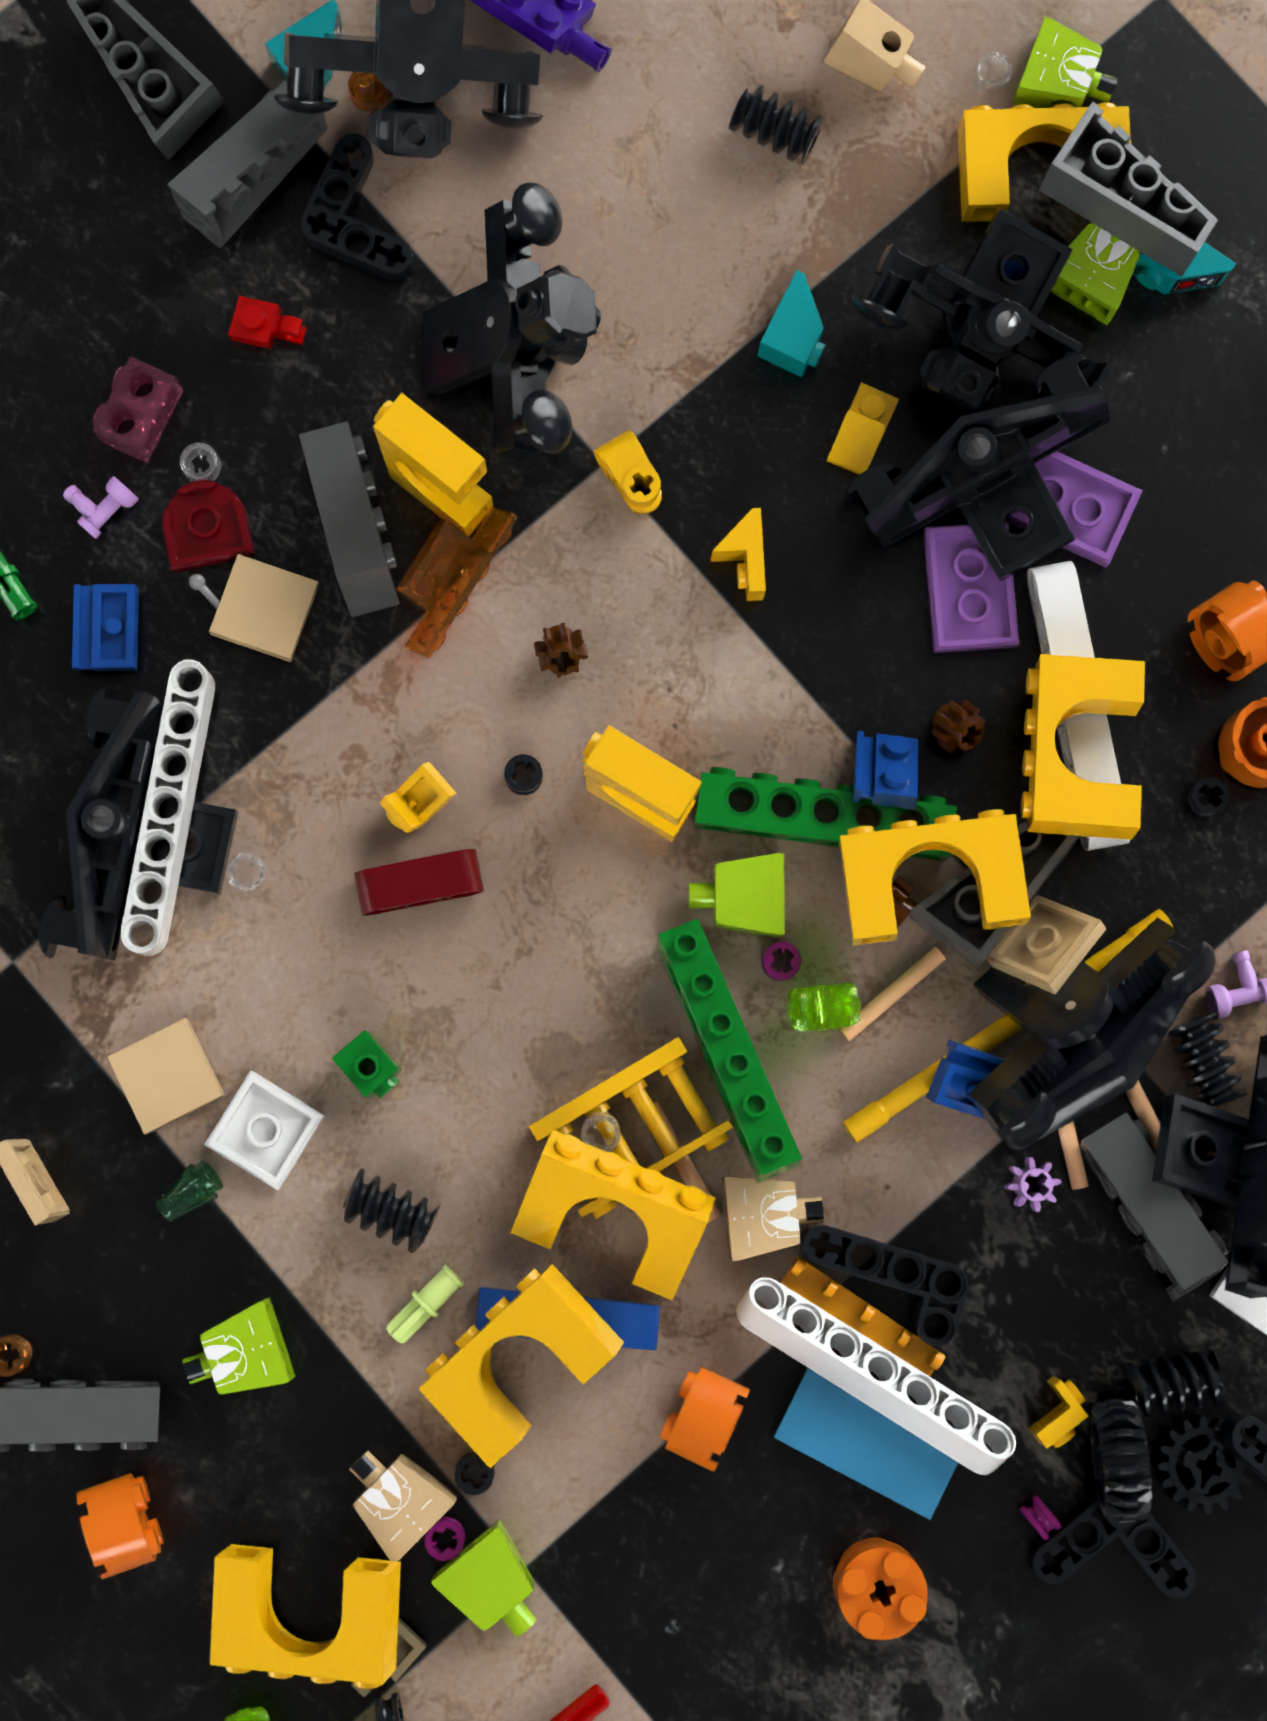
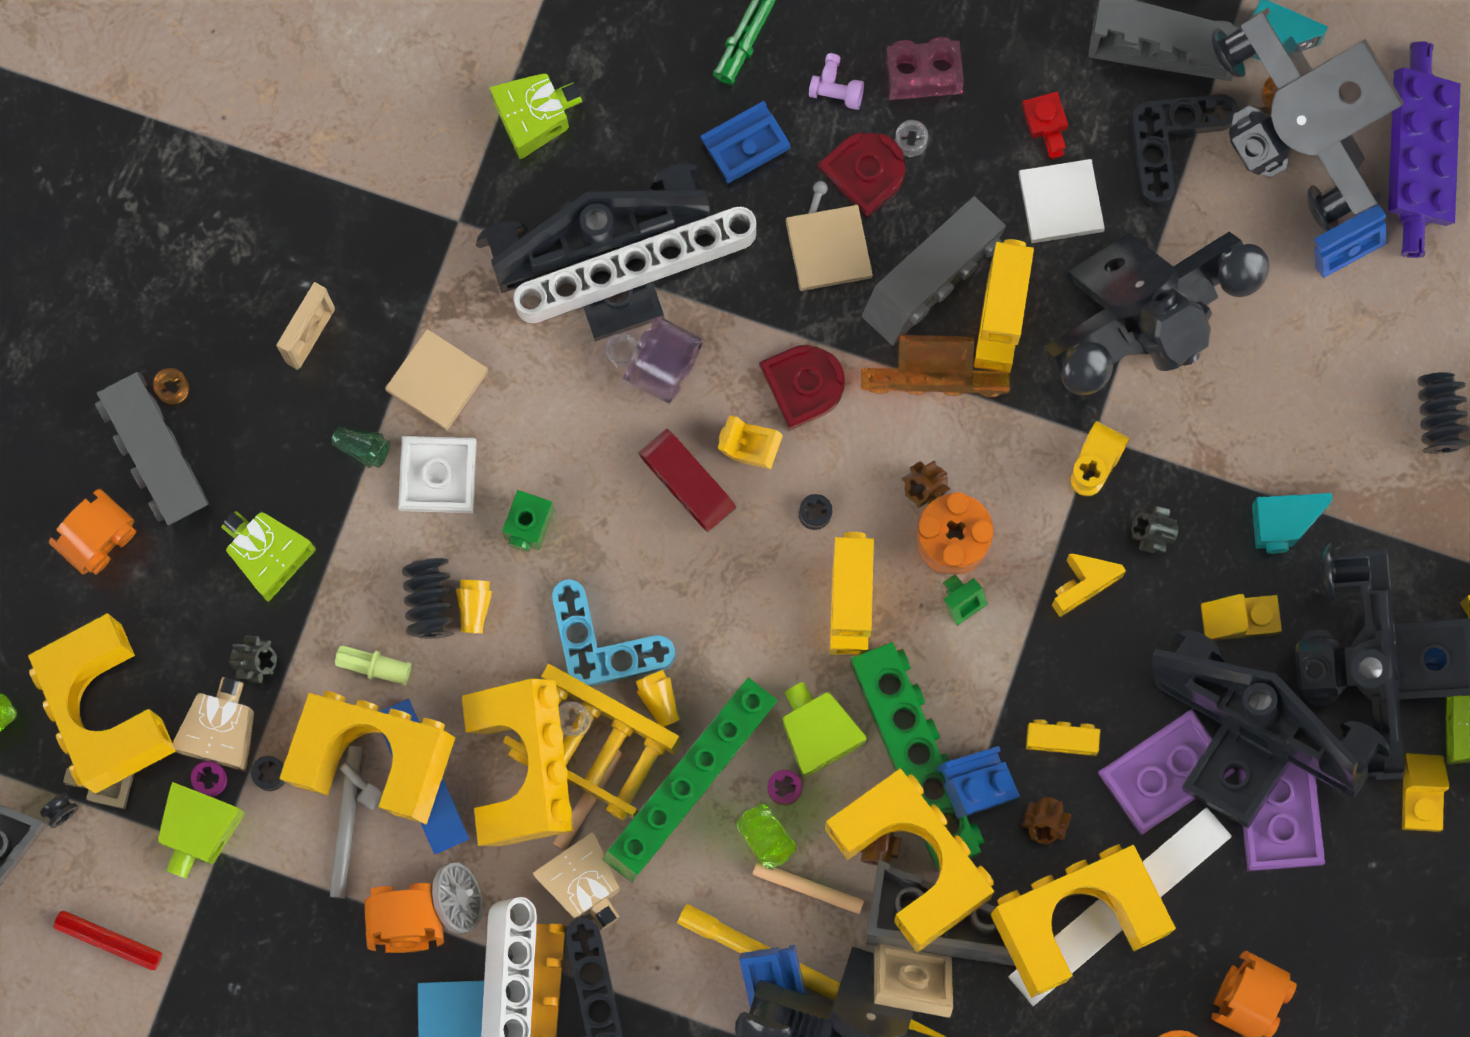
camera: 70 degrees right, 5 degrees down
(283, 835) = (663, 359): none -> clear purple brick
(348, 1426) = (253, 659): none -> pearl dark grey gear
(351, 357) = (1061, 201): none -> white tile
(386, 711) = (804, 383): none -> dark red tile
(420, 1167) = (473, 604): none -> yellow cone
(548, 1068) = (602, 656): none -> medium azure beam
(556, 1381) = (370, 795): none -> light grey hand
(558, 107) = (1350, 241): none -> blue plate
(569, 1420) = (346, 826): none -> light grey bar
(621, 1034) = (659, 698): none -> yellow cone
(644, 634) = (954, 555): none -> orange brick
(695, 681) = (963, 599): none -> green tile
(713, 1351) = (457, 898): none -> light grey wheel
(732, 458) = (1154, 529): none -> pearl dark grey gear
(884, 664) = (1063, 738): none -> yellow piece
(1132, 363) = (1424, 792): none -> yellow slope

